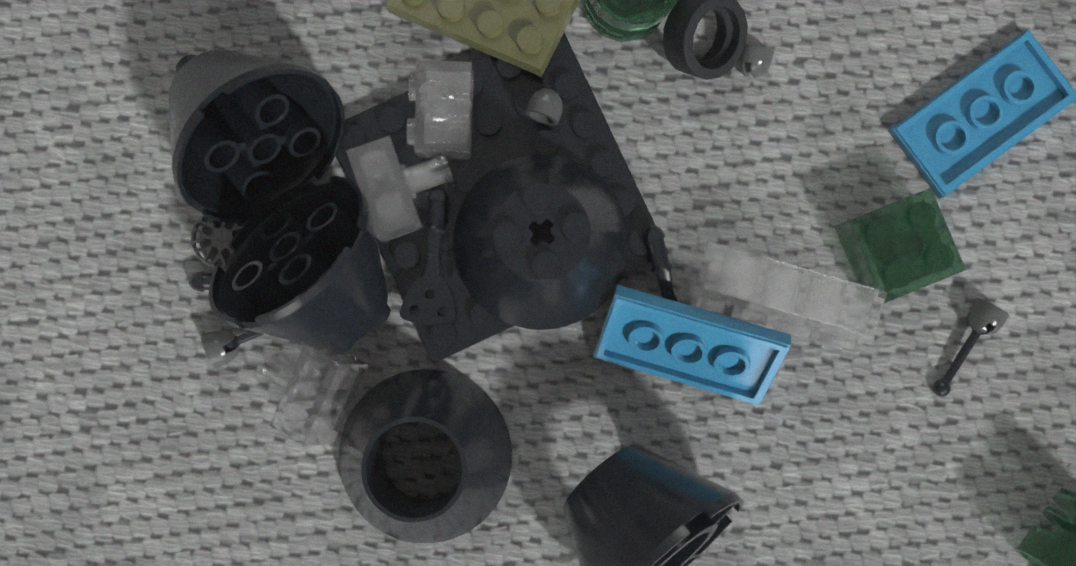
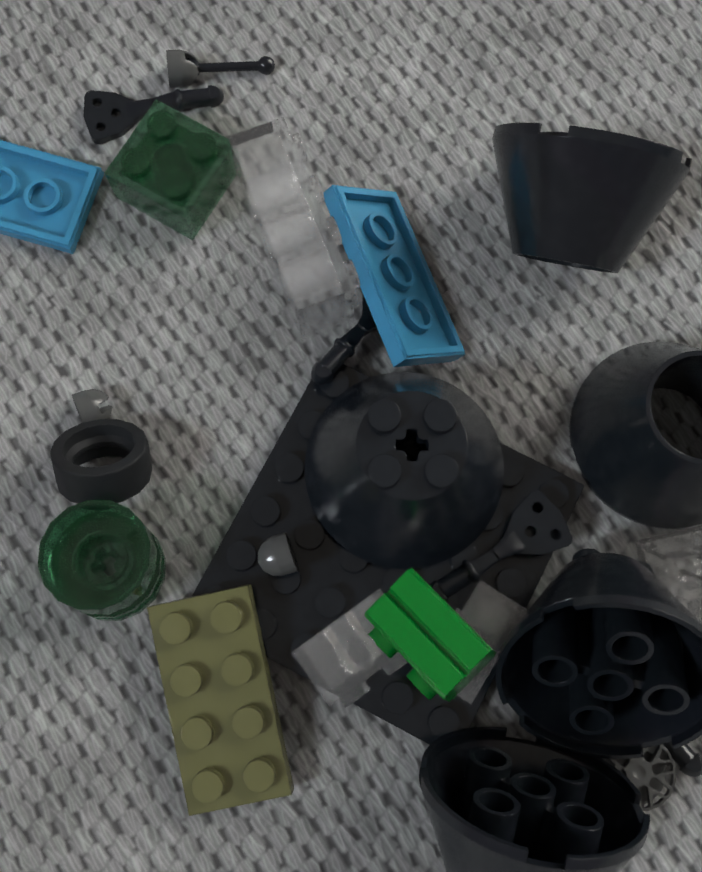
camera: 125 degrees left, 10 degrees down
(408, 150) = (428, 636): none -> green brick
(975, 258) = (133, 111): none -> black piece

